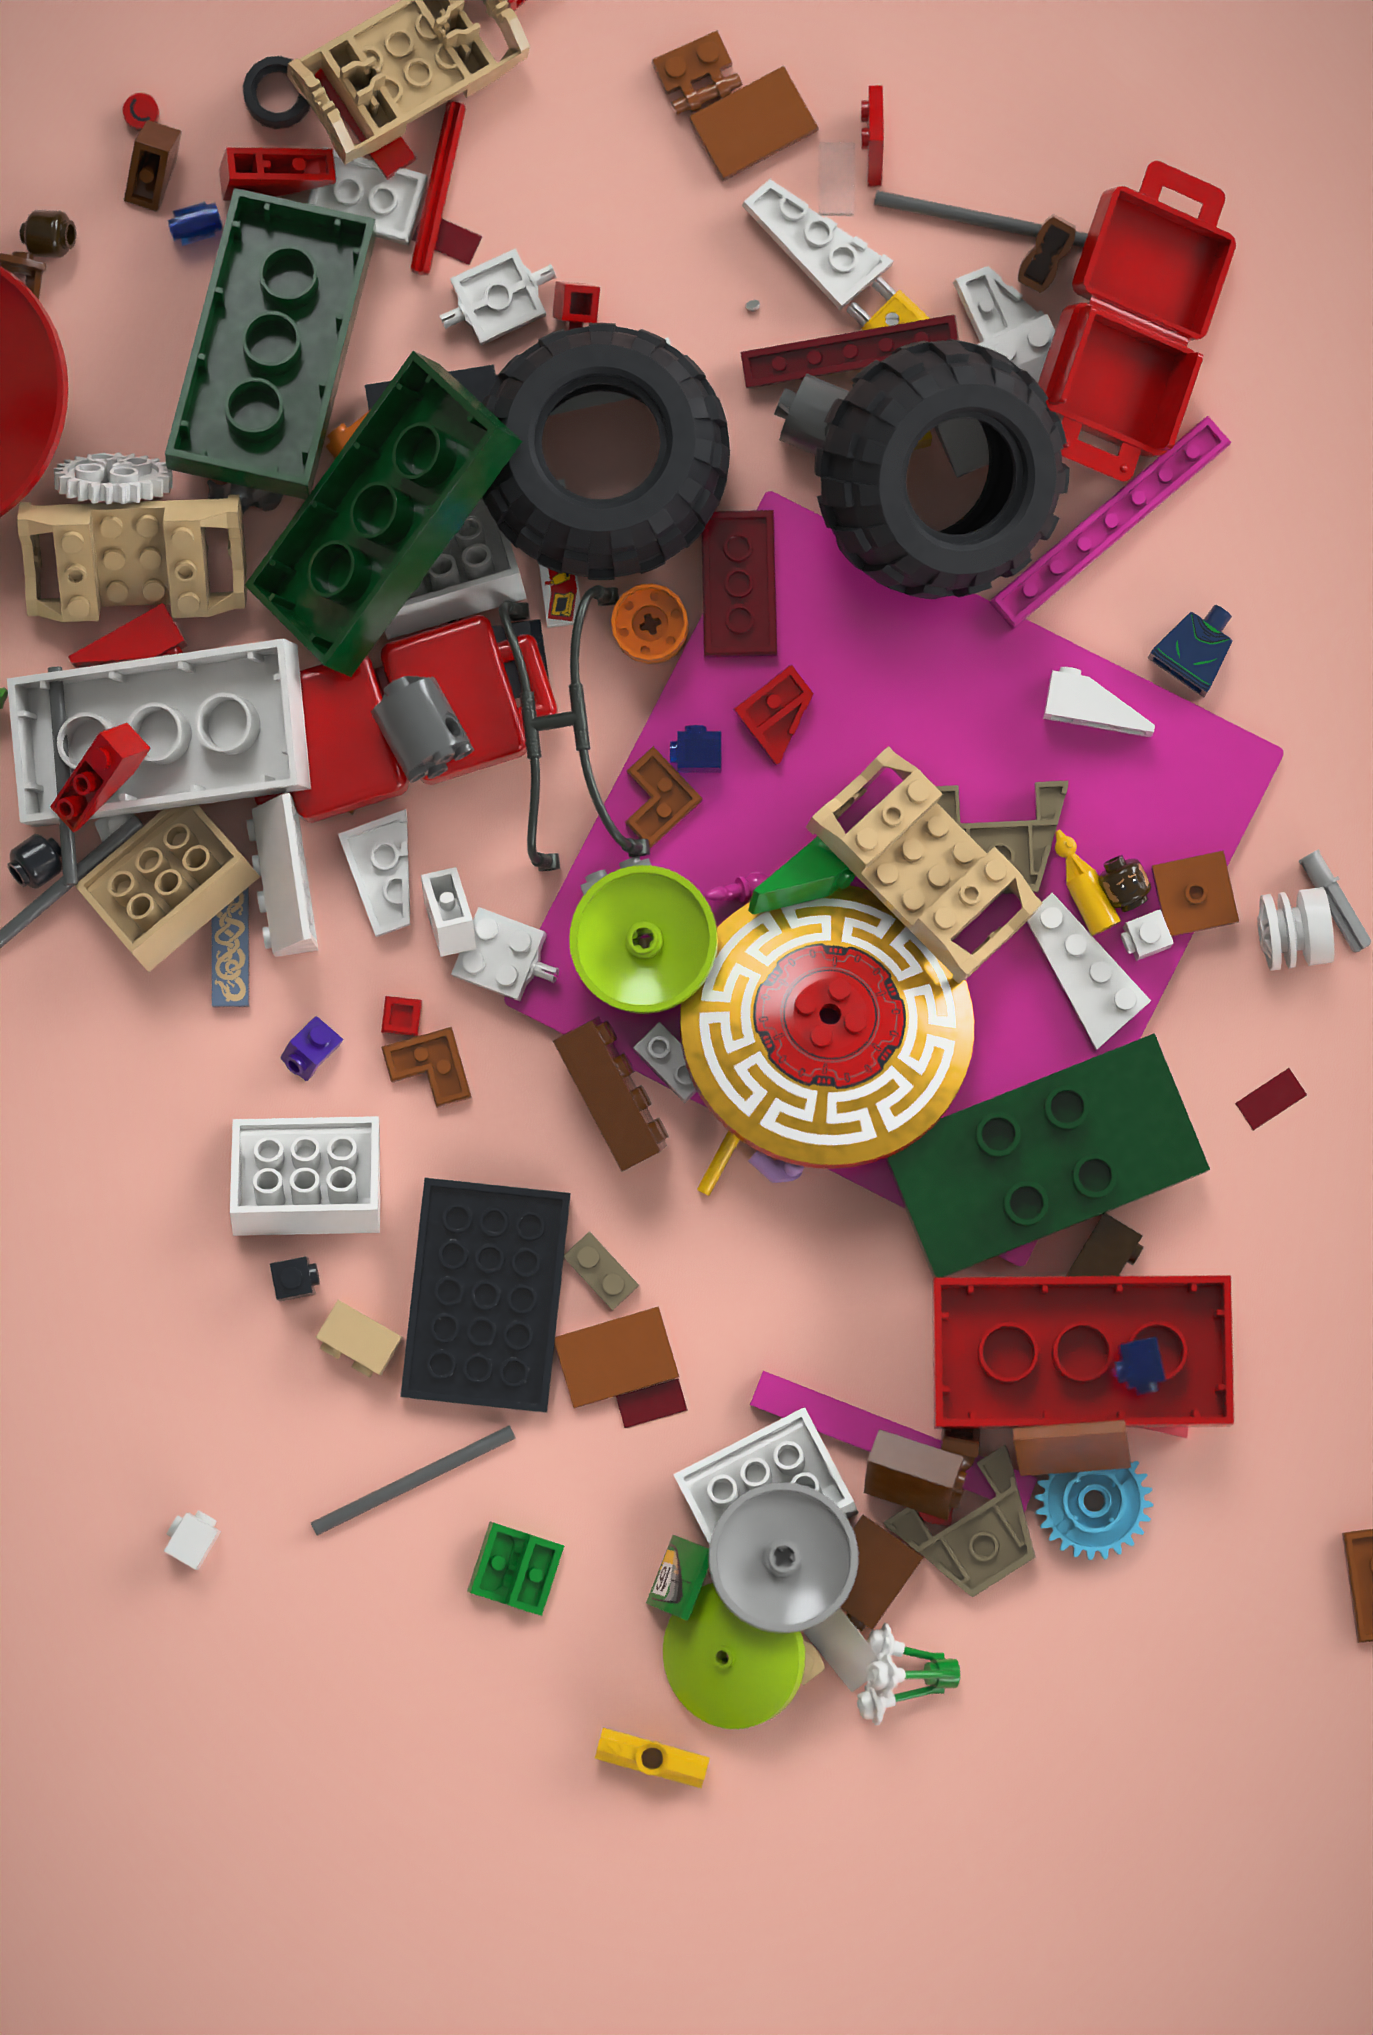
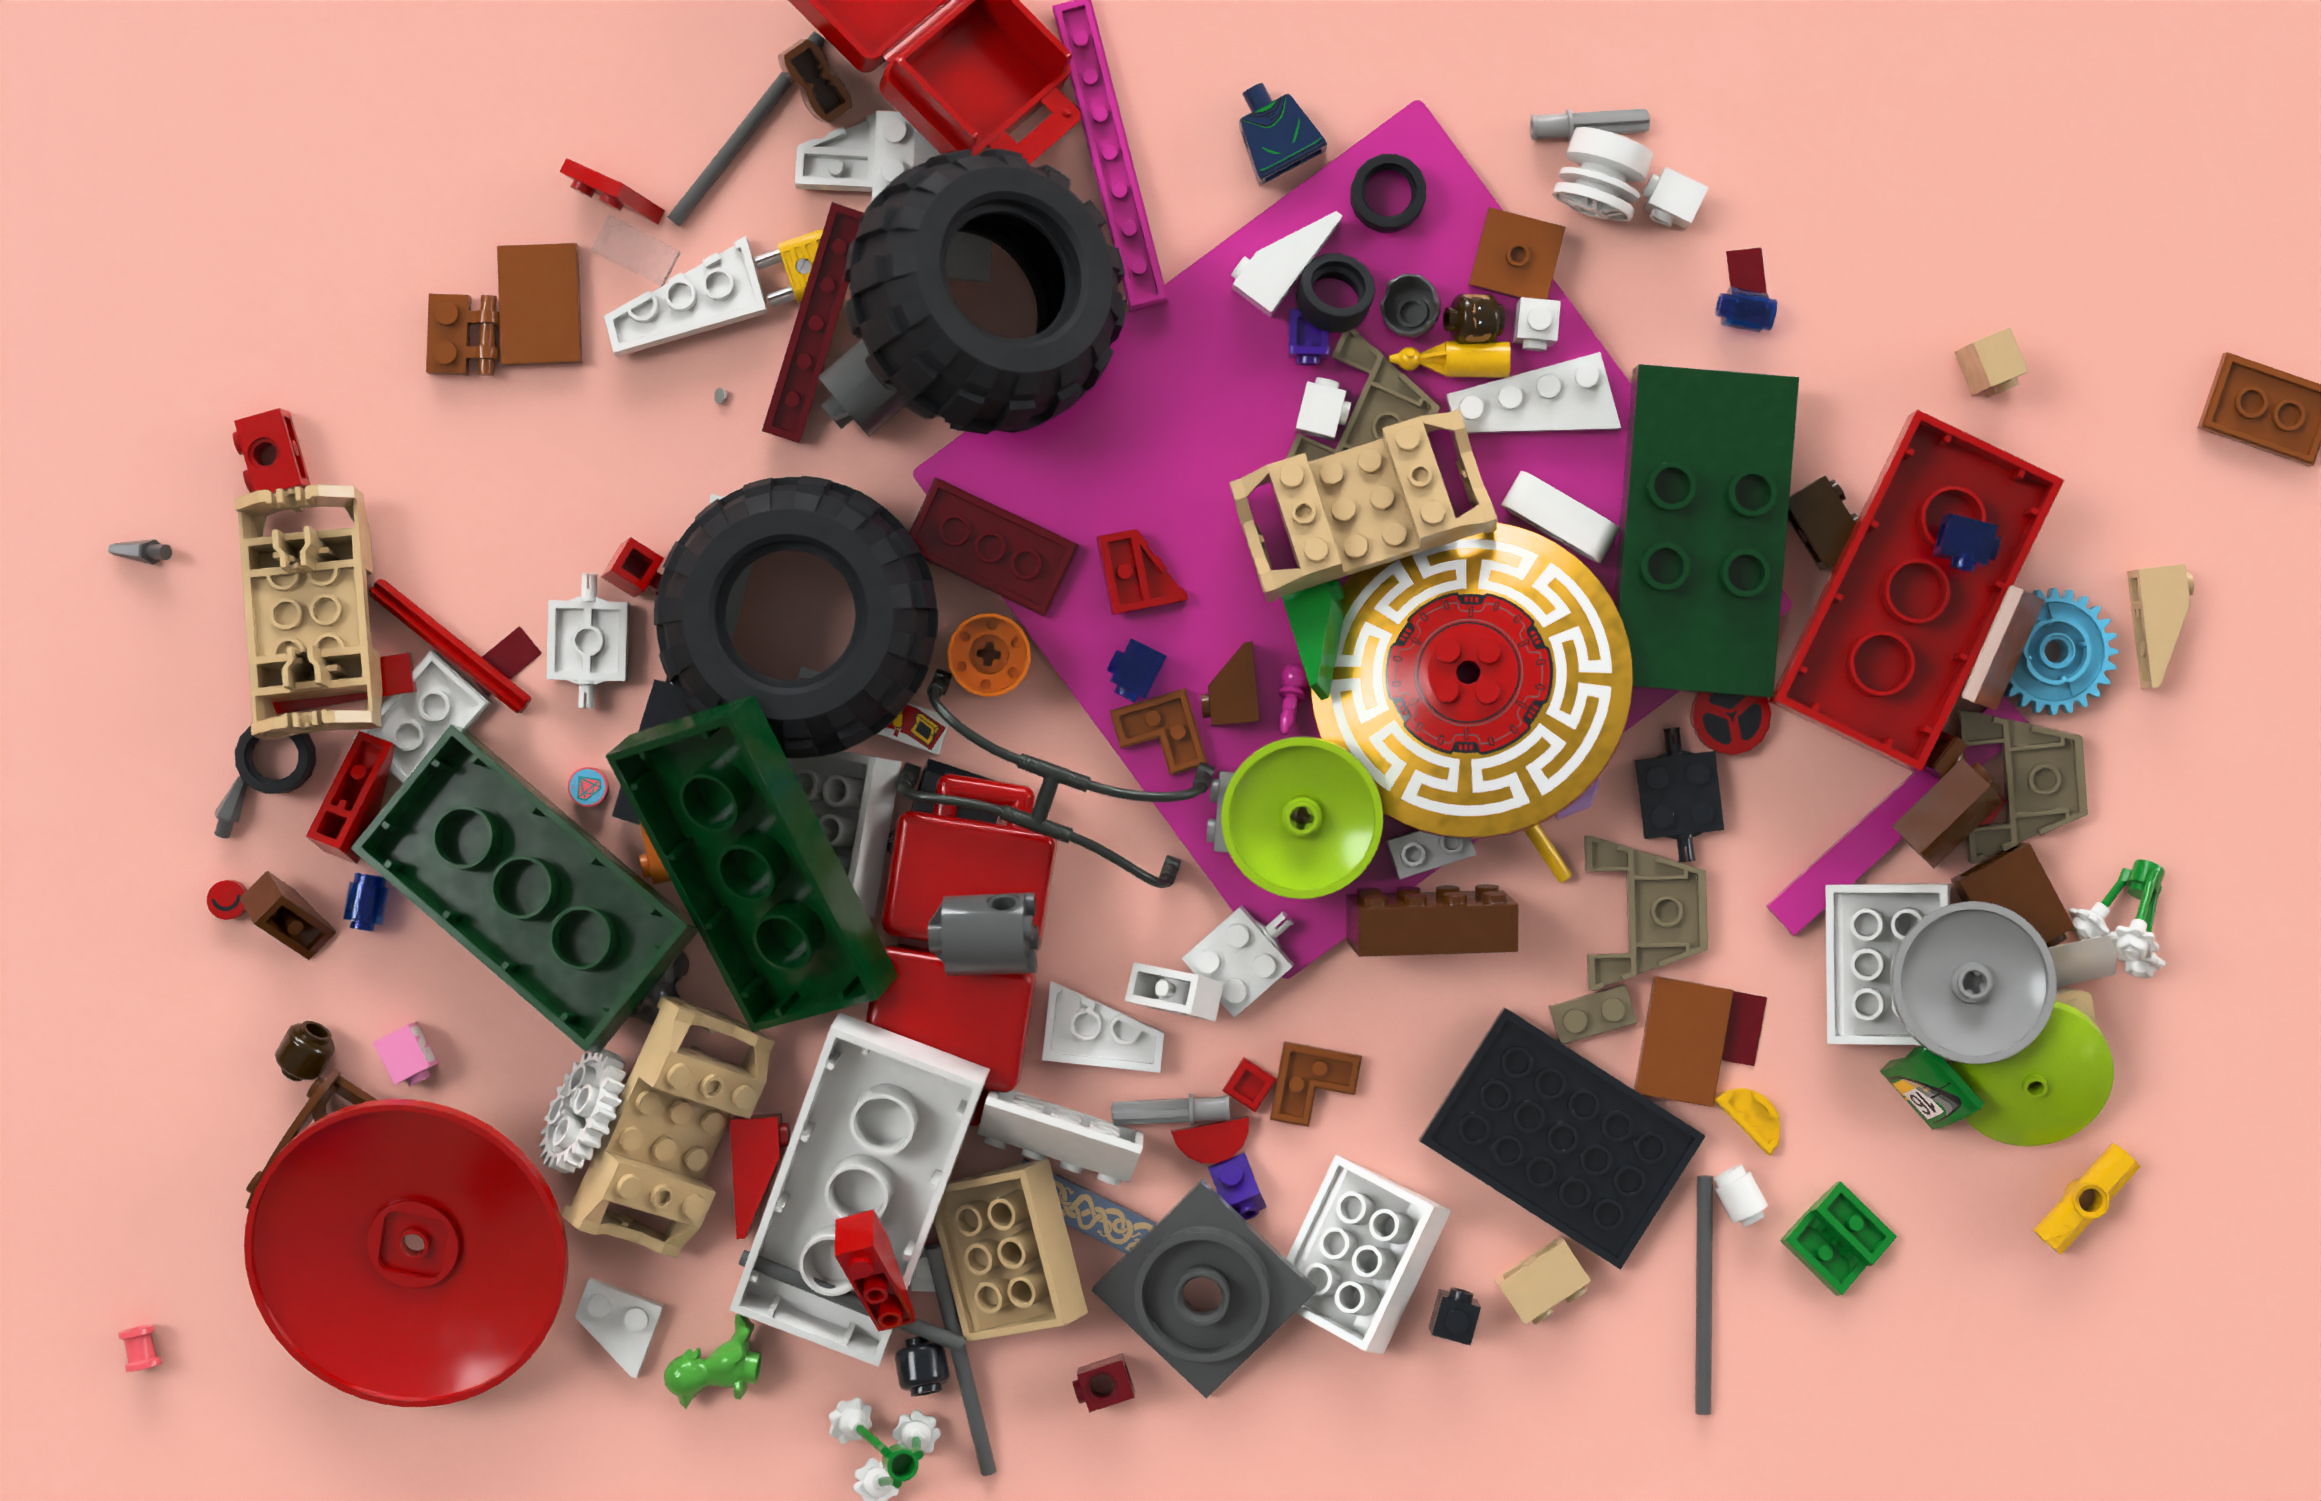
camera: 60 degrees left, 5 degrees up
(86, 316) = (406, 1054): none -> bright pink brick
(109, 1026) = (1113, 1367): none -> dark red brick
(216, 77) = (230, 808): none -> dark grey bar
(258, 1050) = (1213, 1242): none -> dark grey piece
(339, 1009) = (1212, 1141): none -> red tile
(348, 962) = (1171, 1110): none -> light grey axle
(378, 356) = (588, 786): none -> tile
(511, 1467) = (1740, 1195): none -> white brick
(583, 1447) = (1754, 1115): none -> yellow tile
(716, 1285) = (1662, 911): none -> dark tan wing
(720, 838) = (1233, 691): none -> reddish brown slope
(819, 1251) = (1679, 794): none -> black plate
(900, 1263) = (1730, 722): none -> tile
(987, 796) = (1322, 409): none -> white brick
(998, 1035) = (1560, 517): none -> white beam
(1042, 755) = (1306, 341): none -> dark purple bracket
(1065, 766) = (1344, 269): none -> black tyre
(1109, 825) = (1410, 305): none -> dark grey hair
(1175, 1571) = (2158, 611): none -> tan slope
(1202, 736) = (1366, 215): none -> black tyre
(1247, 1105) = (1746, 309): none -> clear blue brick
(1304, 1327) = (1992, 363): none -> tan brick
(1308, 999) = (1673, 198): none -> white brick

